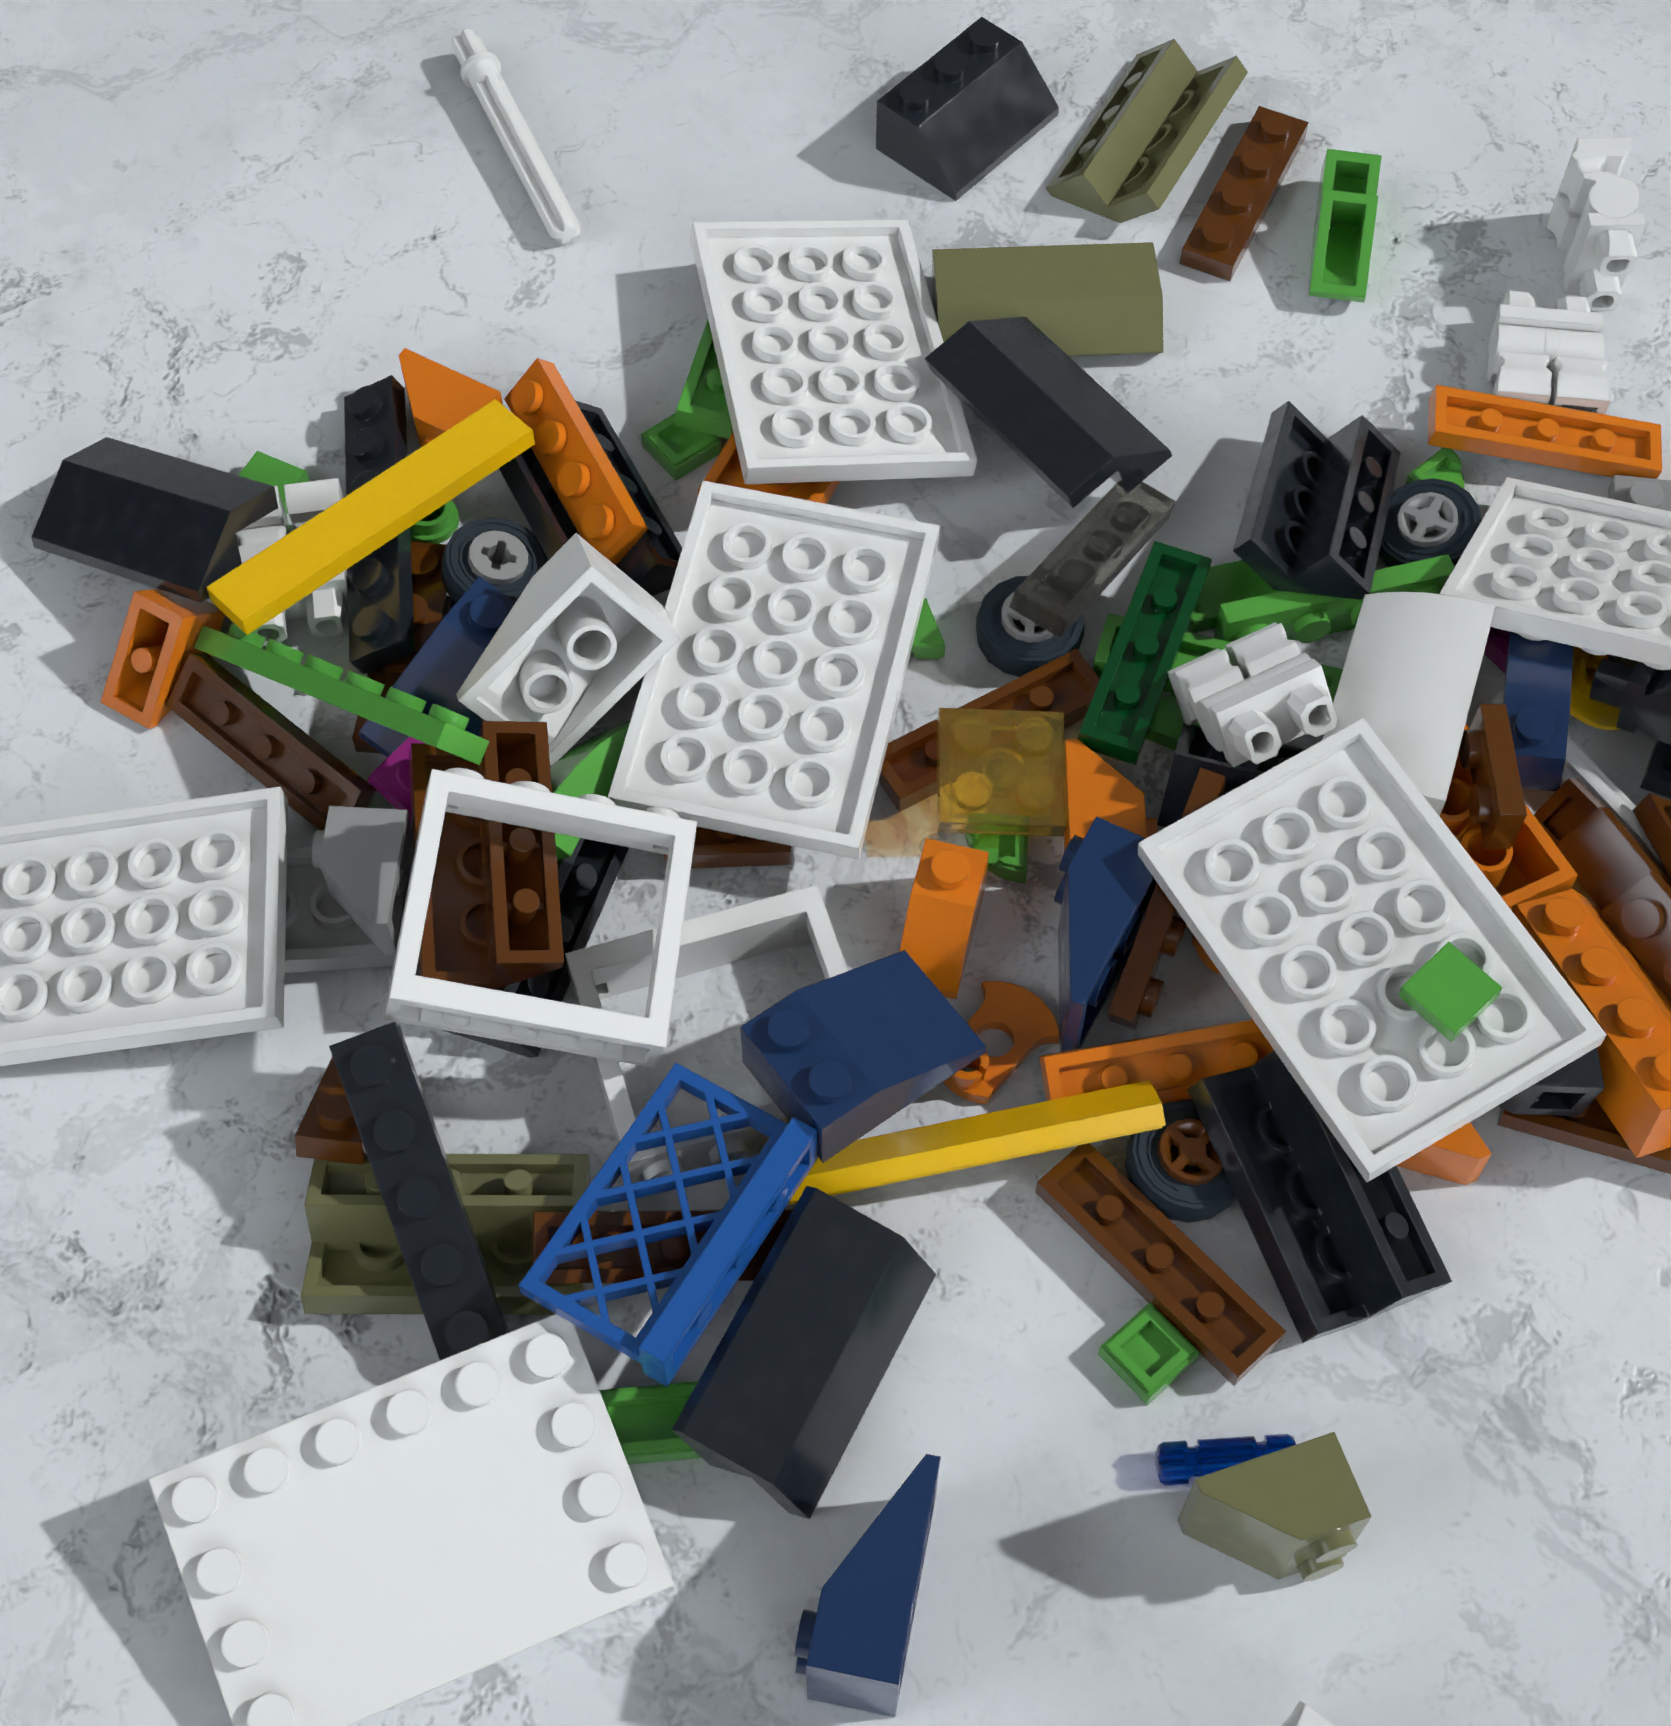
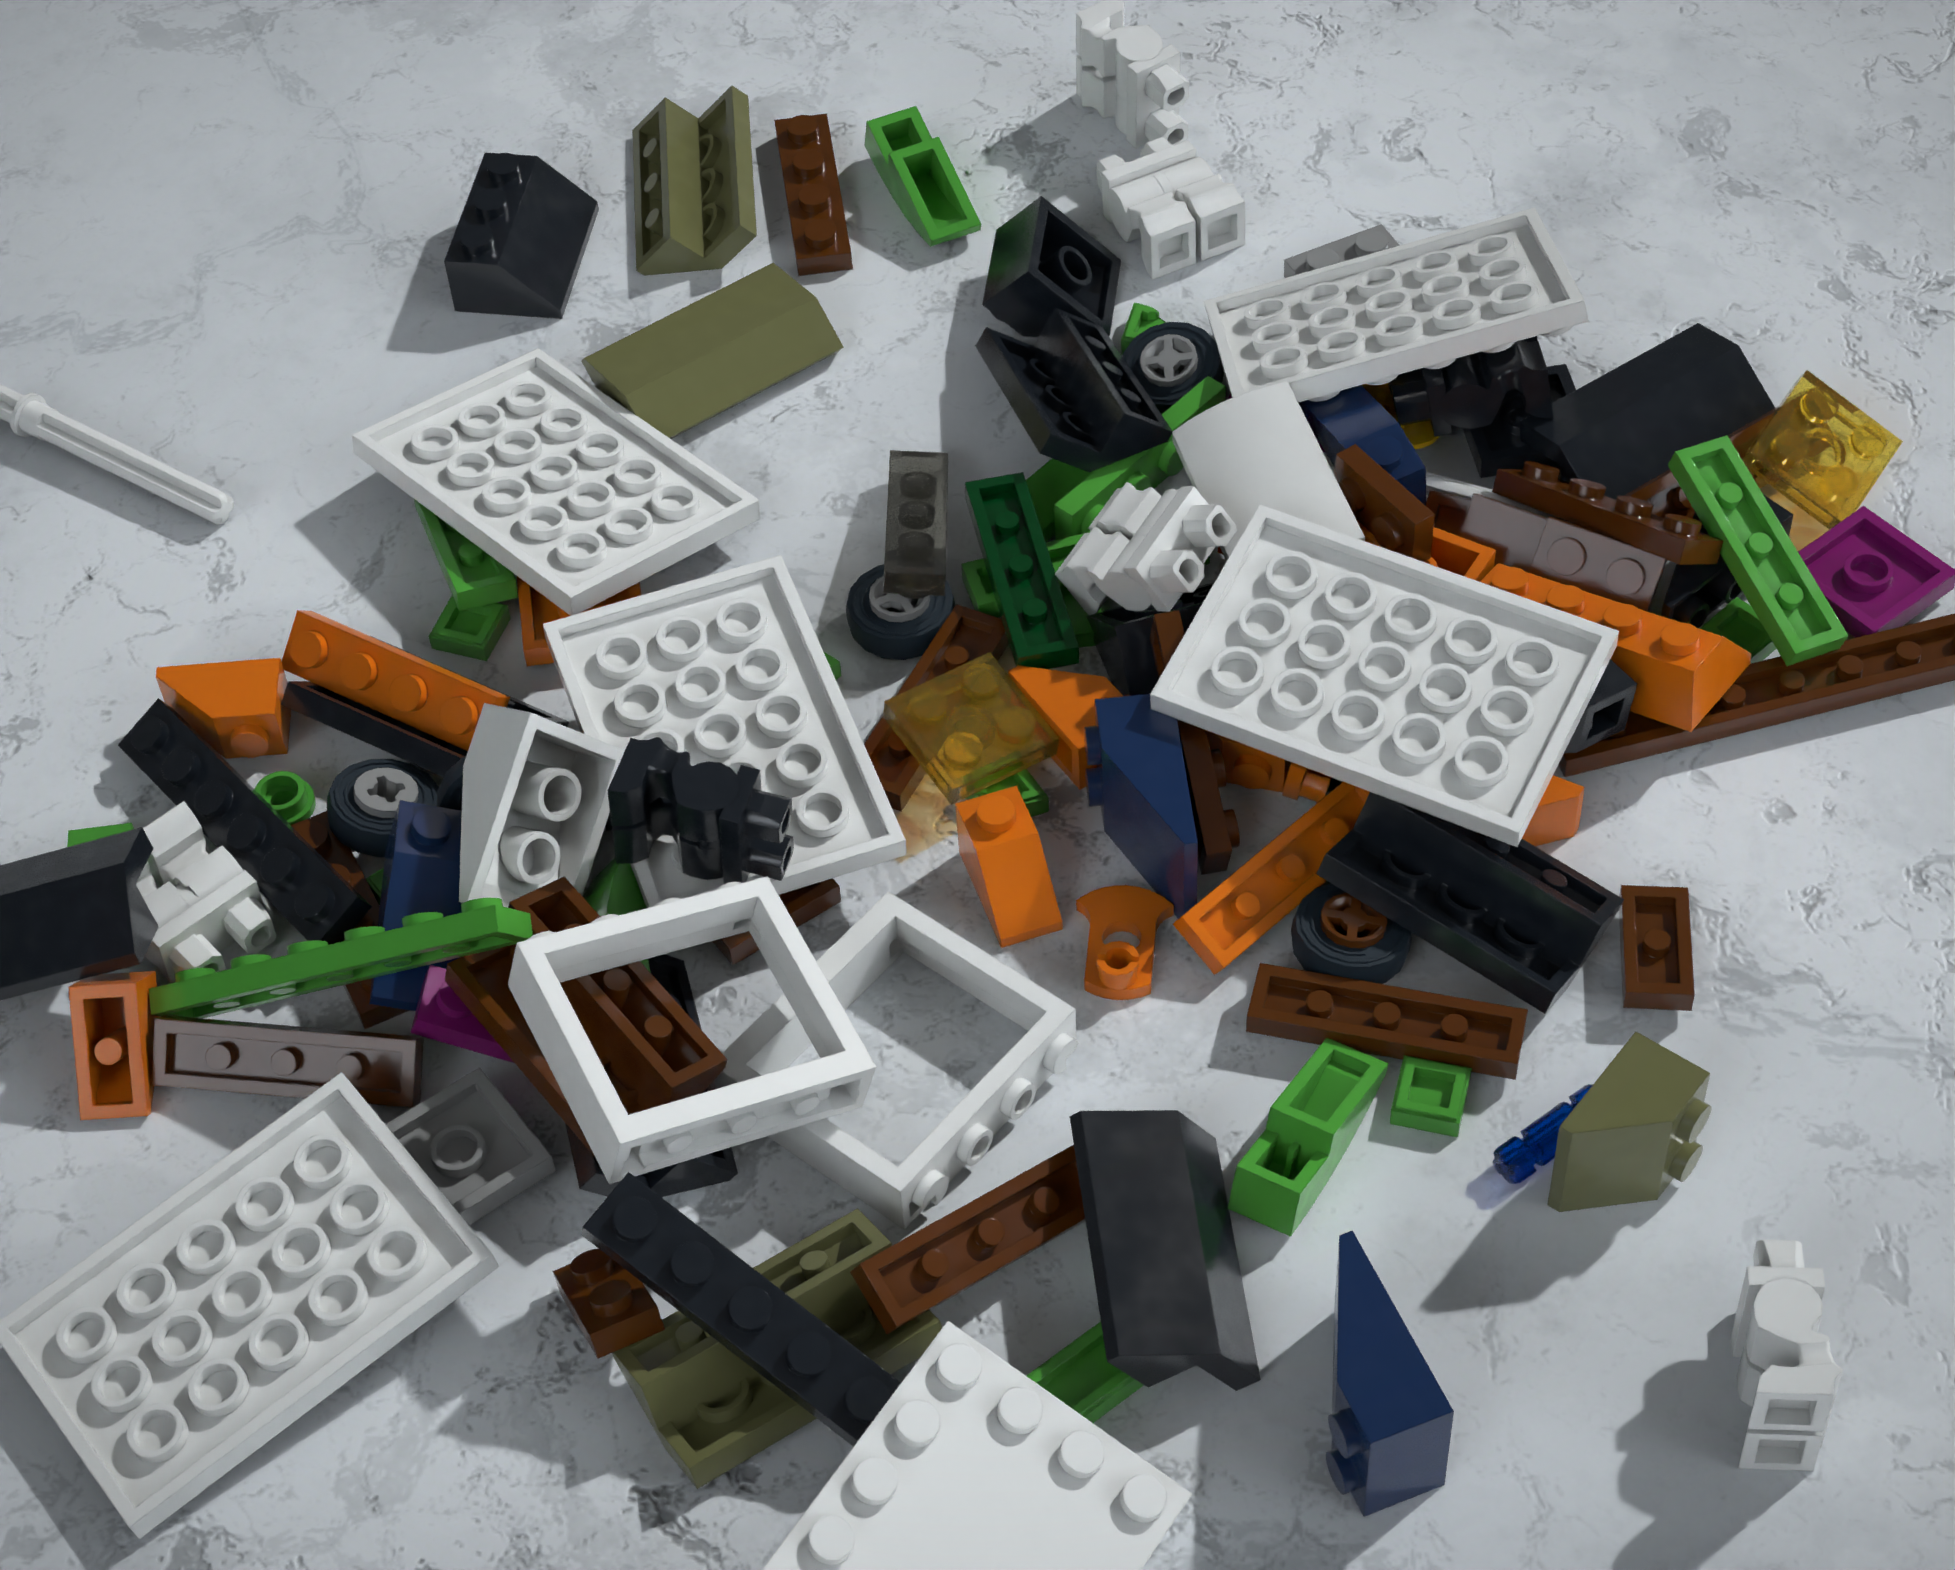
camera: 30 degrees left, 10 degrees down
(367, 867) = (476, 1097): light grey slope -> none
(370, 517) = (245, 815): yellow tile -> none
(693, 744) = (714, 815): none -> black hips
(722, 1253) = (1042, 1209): blue fence -> none
(857, 1048) = (1028, 994): dark blue slope -> none
(988, 1138) = (1160, 1023): yellow tile -> none
(1010, 1323) = (1306, 1136): none -> bright green slope
(1046, 407) = (787, 429): black slope -> none
(1385, 374) = (1048, 264): none -> black slope
(1450, 991) = (1481, 663): bright green tile -> none
(1451, 1343) = (1656, 948): none -> reddish brown plate
(1543, 434) = (1206, 255): orange plate -> none

